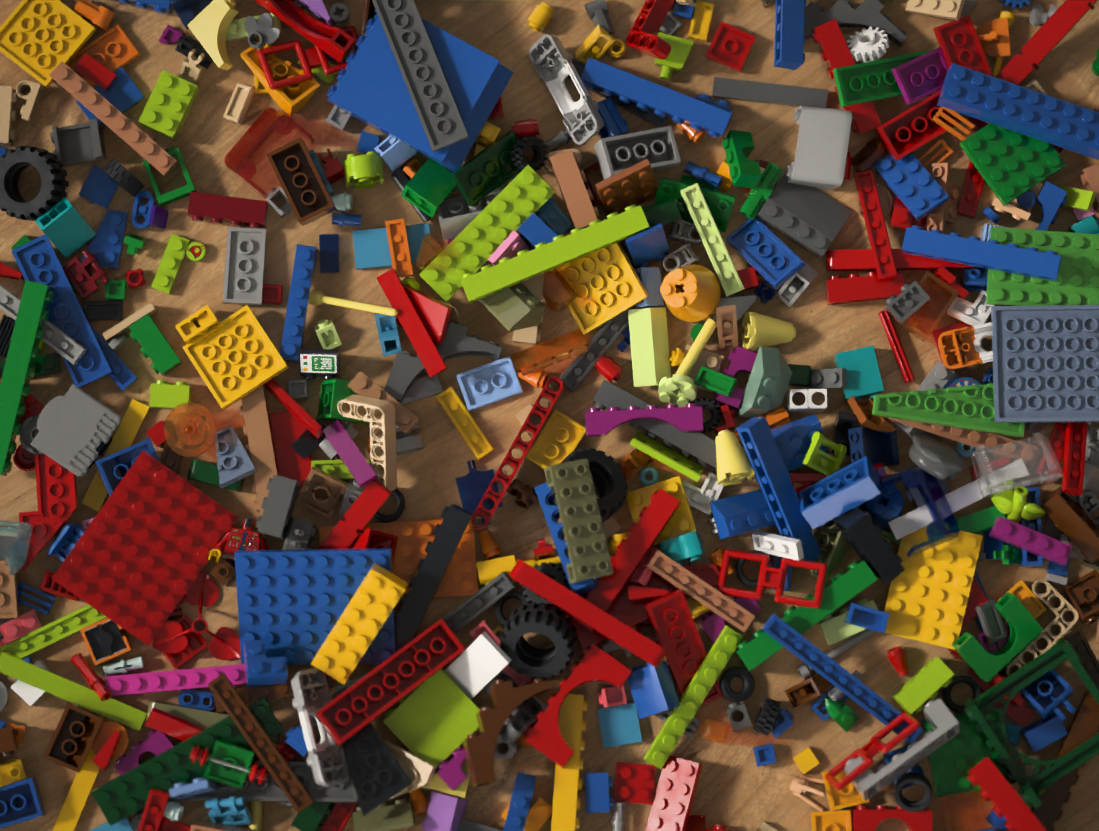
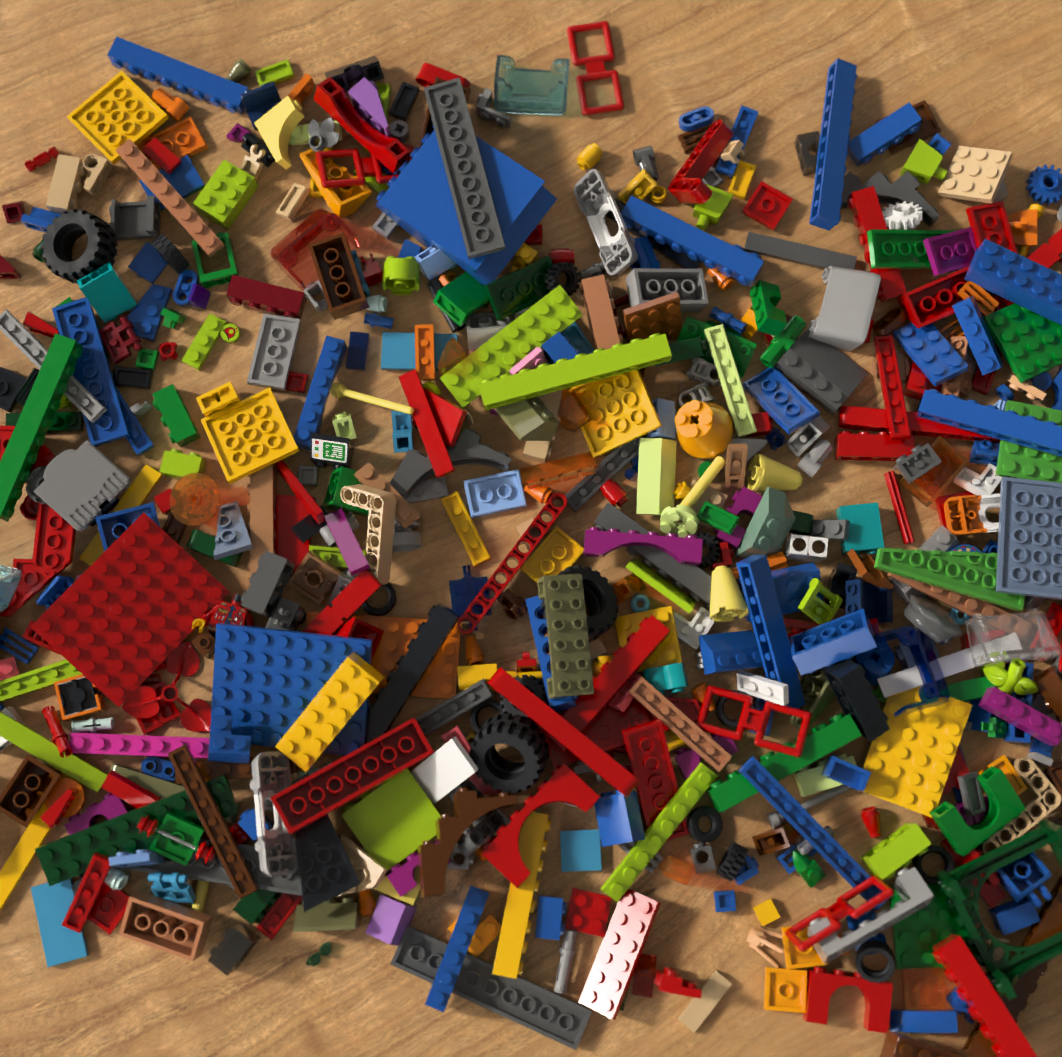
camera: 10 degrees right, 5 degrees down
(124, 325) = (146, 394): tan tile -> none
(612, 696) = (576, 820): coral bracket -> none
(642, 593) = (621, 719): red slope -> none
(647, 247) = (666, 377): blue slope -> none
(805, 309) = (812, 461): none -> light grey piece
(949, 279) = (960, 445): red tile -> none
(956, 162) = (978, 335): none -> blue brick
(1013, 732) = (984, 911): dark azure tile -> none

